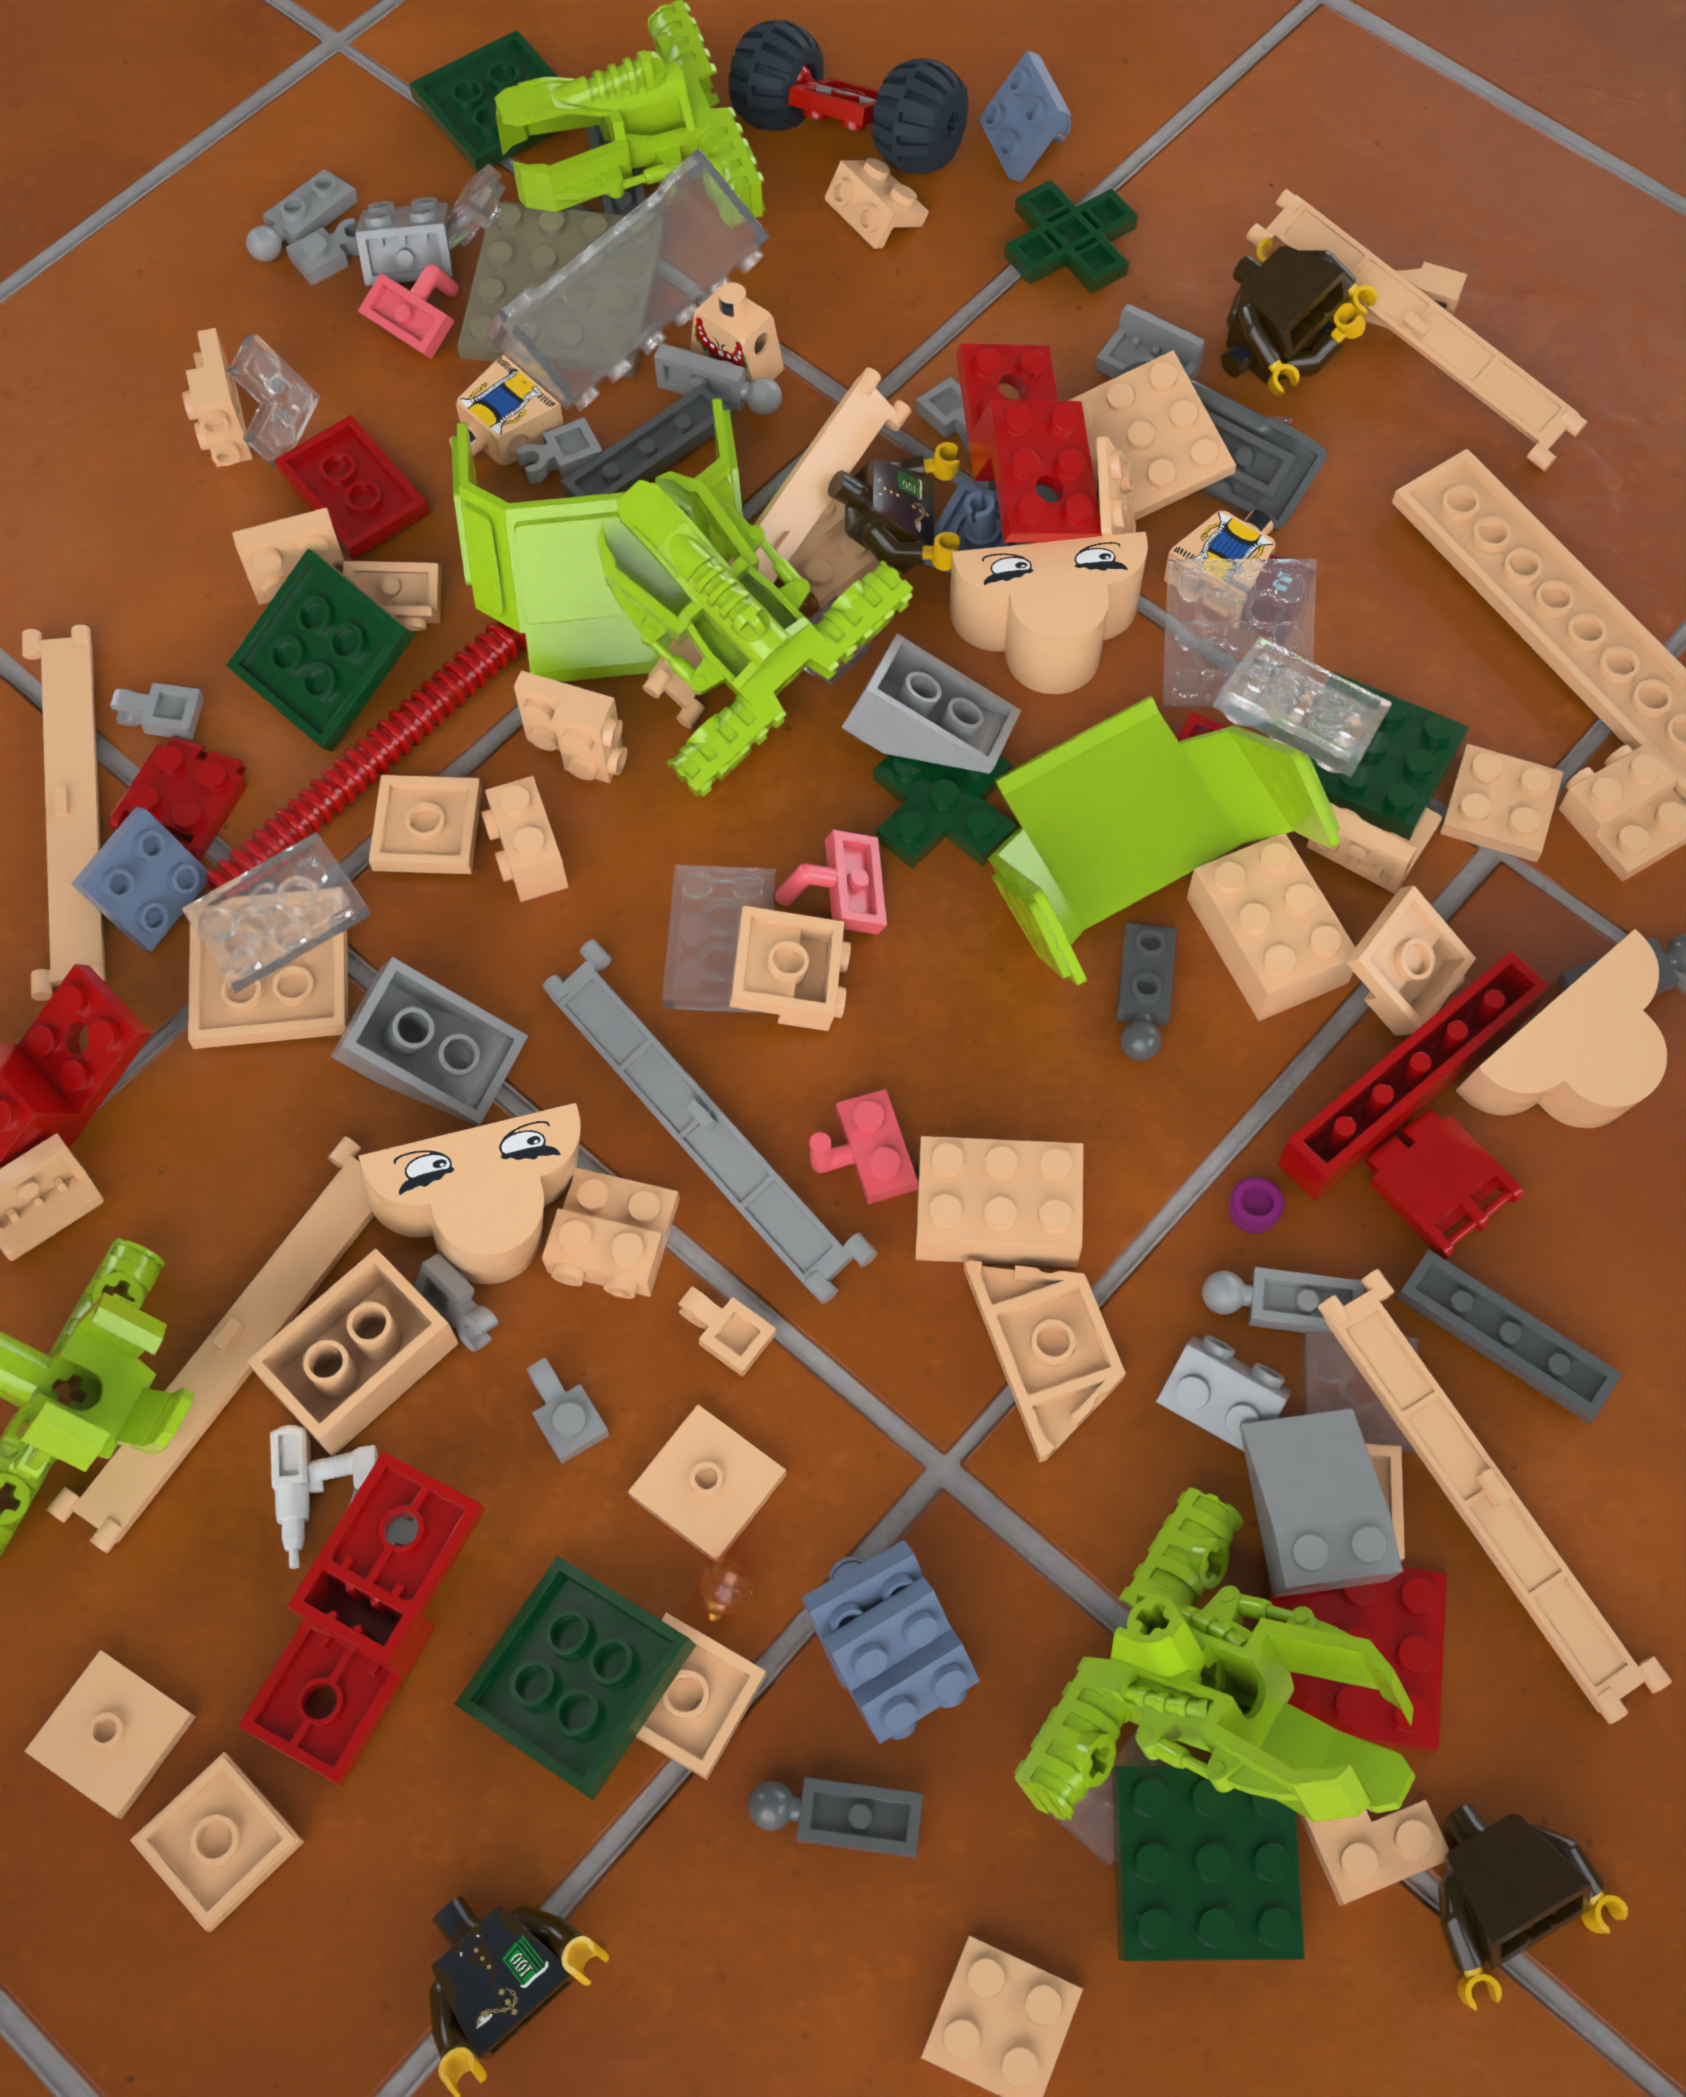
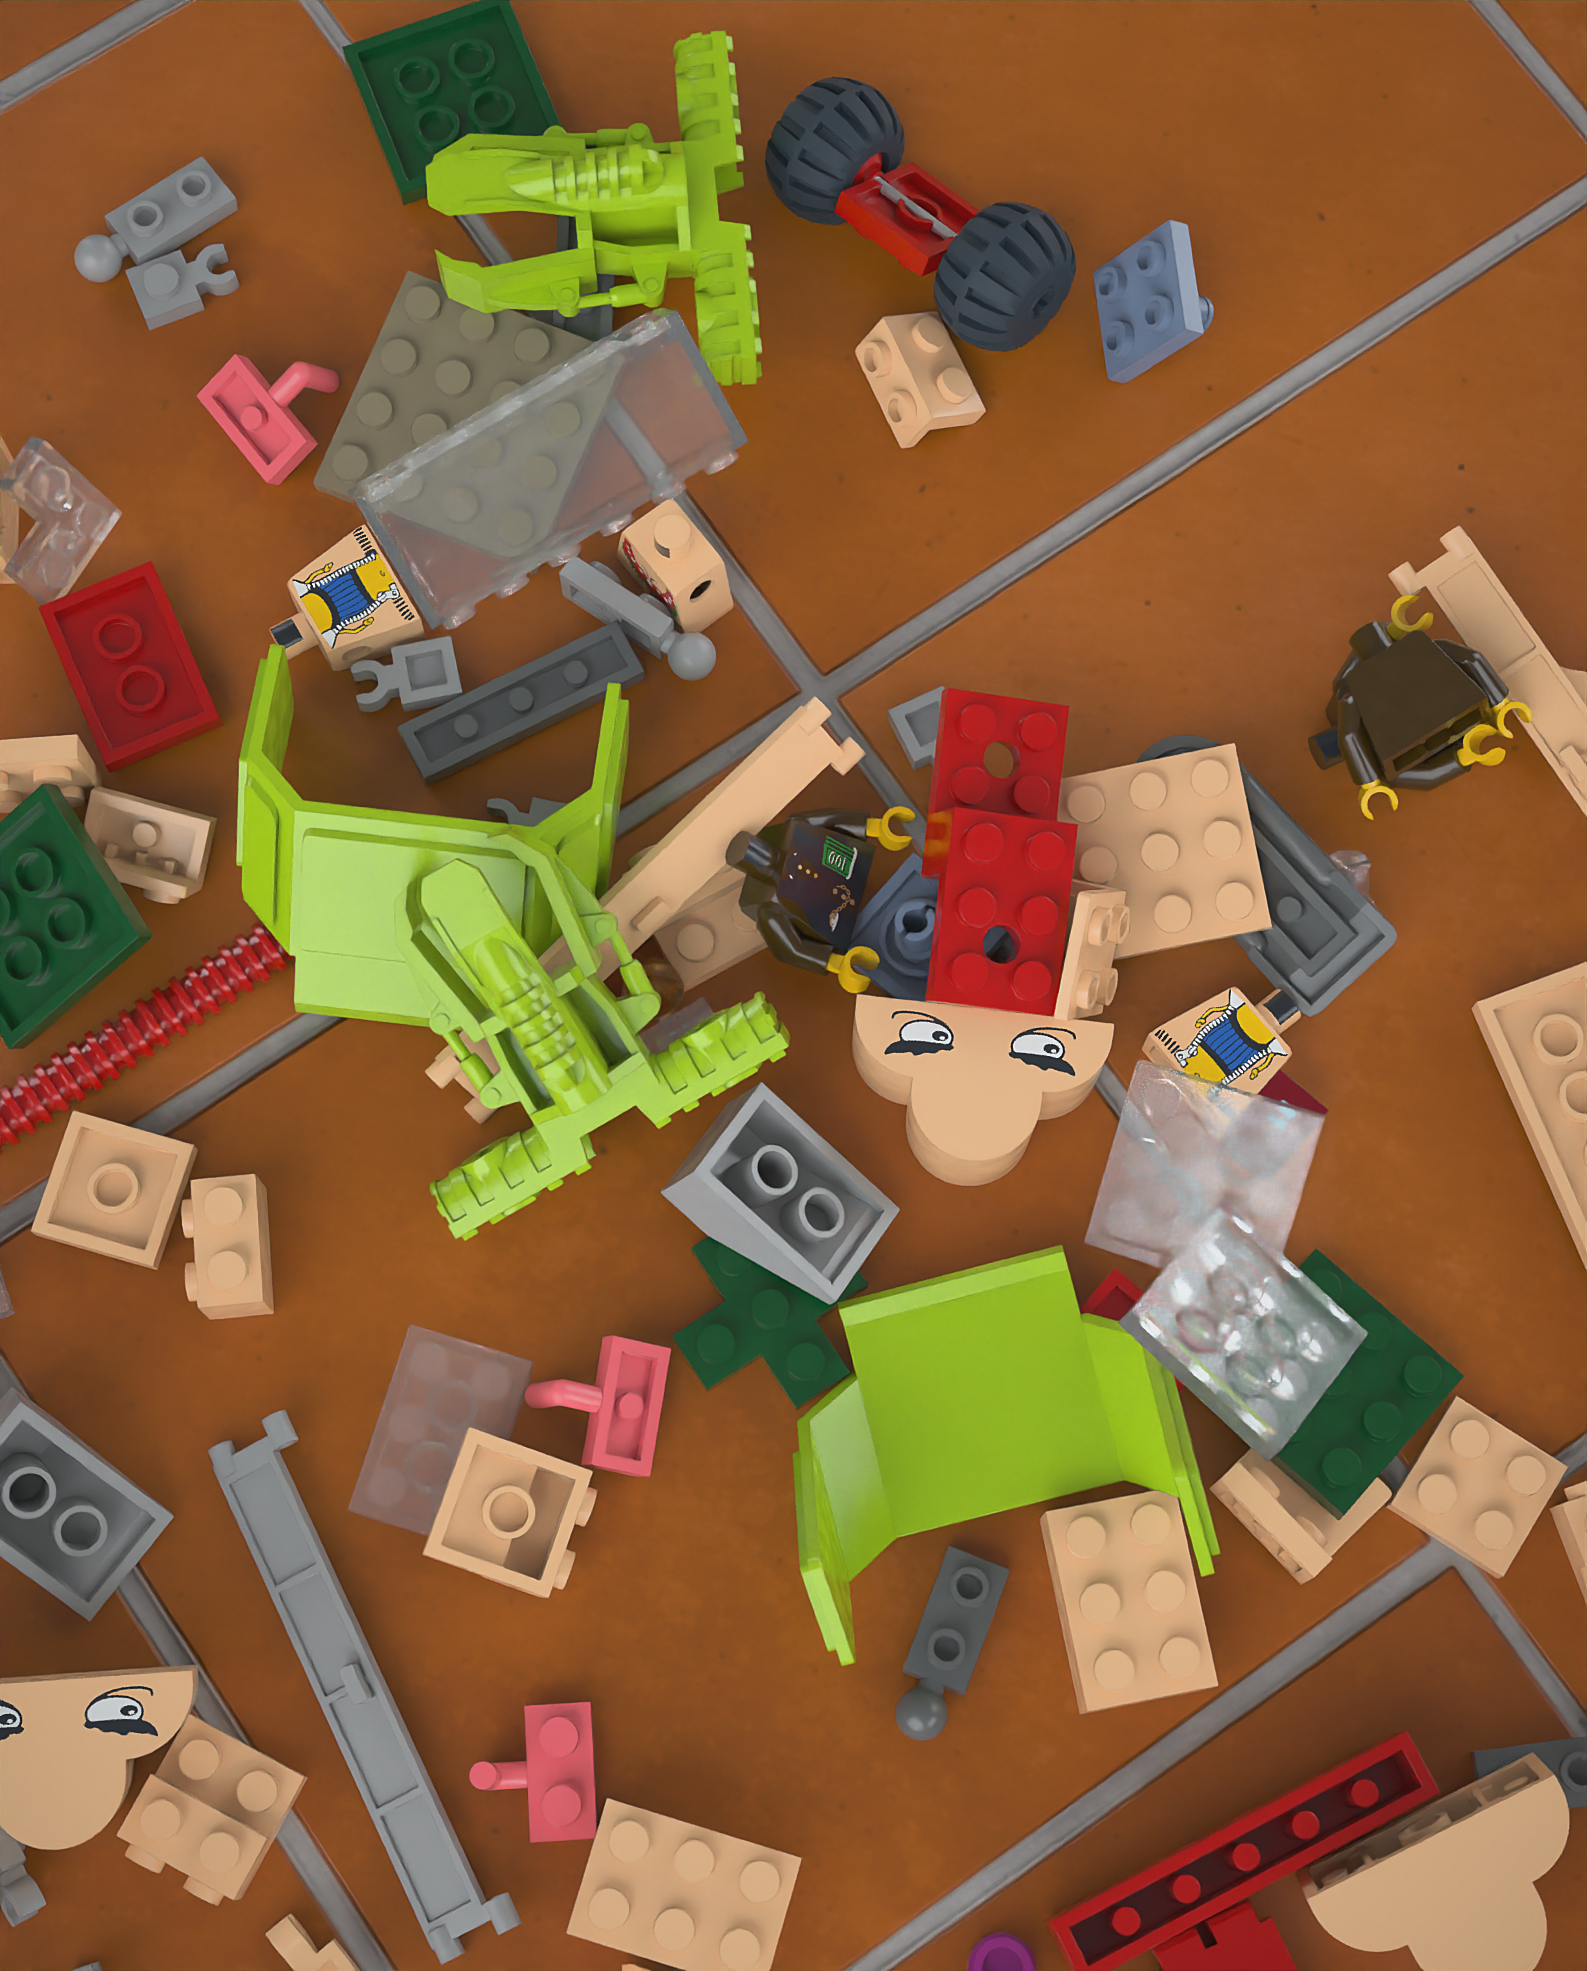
camera: 10 degrees right, 10 degrees up
(403, 239) = (281, 295): light grey bracket -> none
(475, 207) = (381, 274): clear plate -> none
(575, 722) = (332, 1120): light nougat plate -> none
(1071, 236) = (1164, 496): dark green plate -> none
(1146, 338) = (1212, 703): light grey bracket -> none
(1409, 962) = (1280, 1707): light nougat plate -> none

